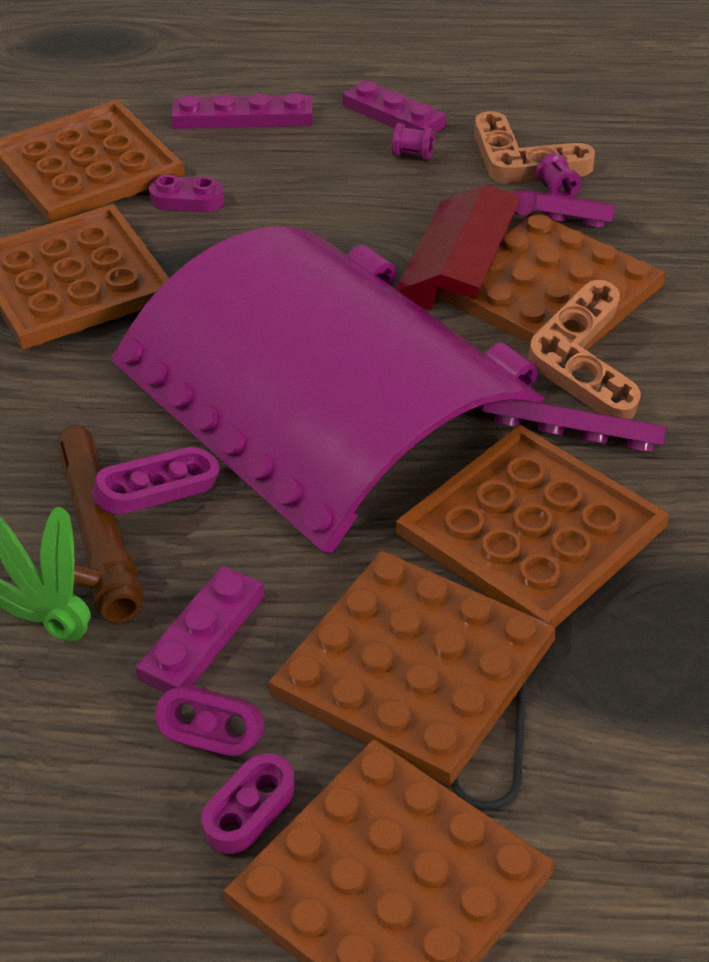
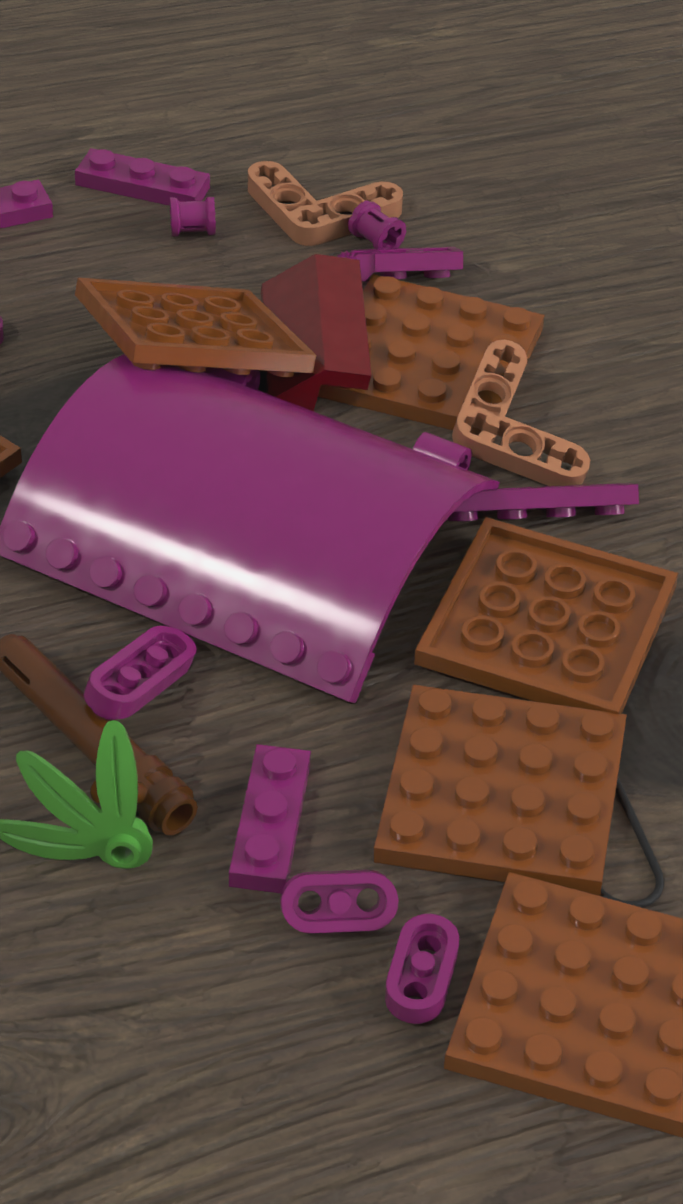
camera: 25 degrees left, 0 degrees up
(352, 220) = (194, 327): none -> dark orange plate

